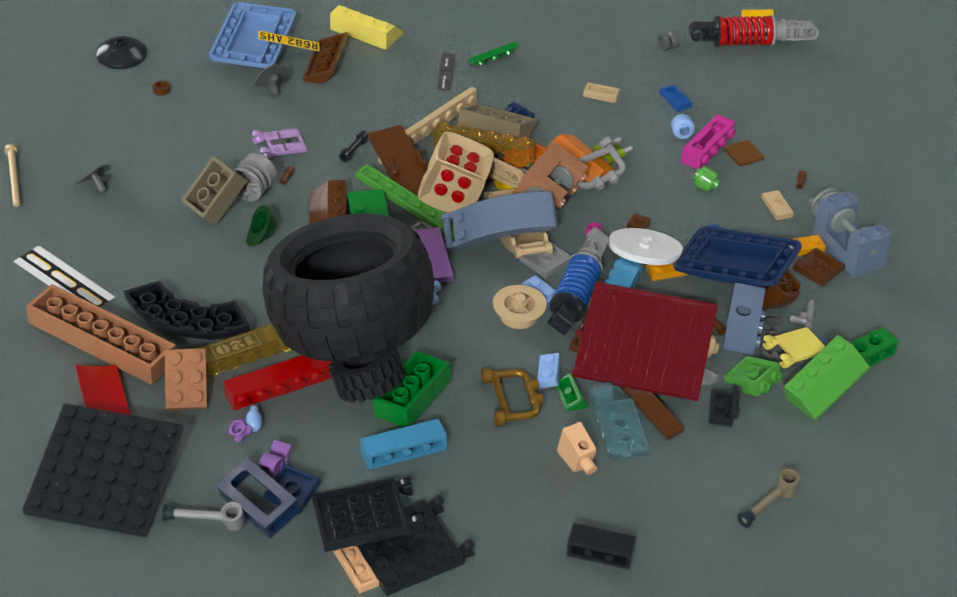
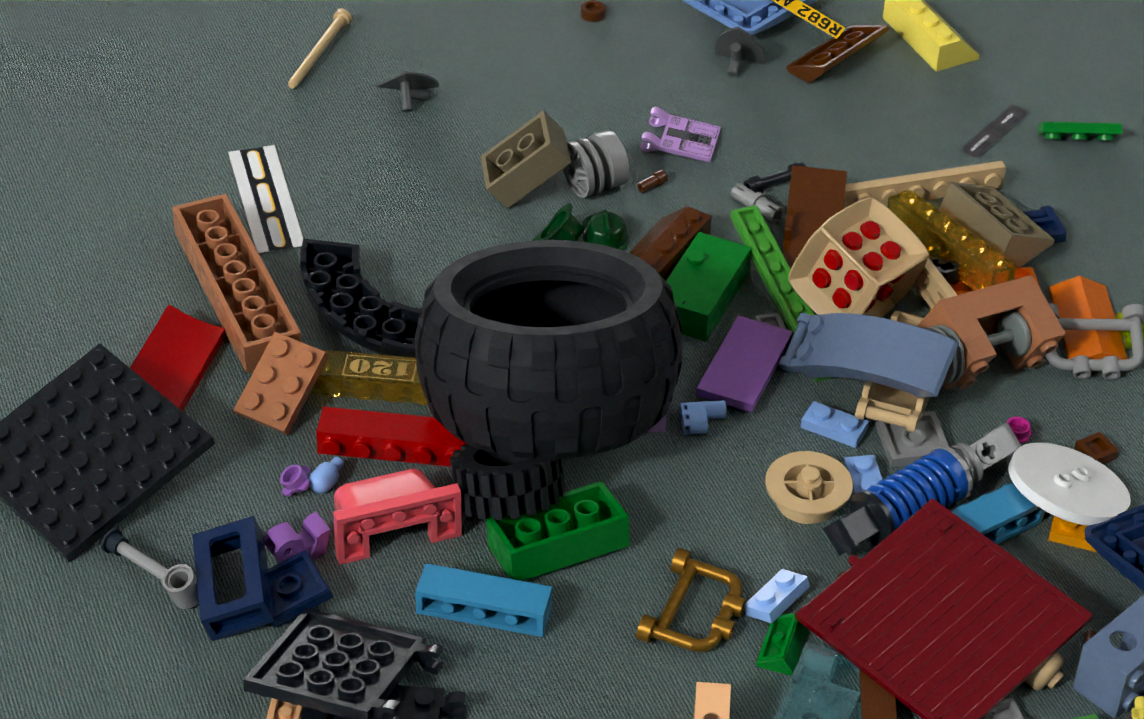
camera: 35 degrees right, 0 degrees up
(287, 216) = (605, 229): none -> dark green piece
(310, 417) = (392, 504): none -> coral windscreen
(354, 163) = (751, 198): none -> light grey pin
(500, 268) = (834, 424): none -> light blue plate

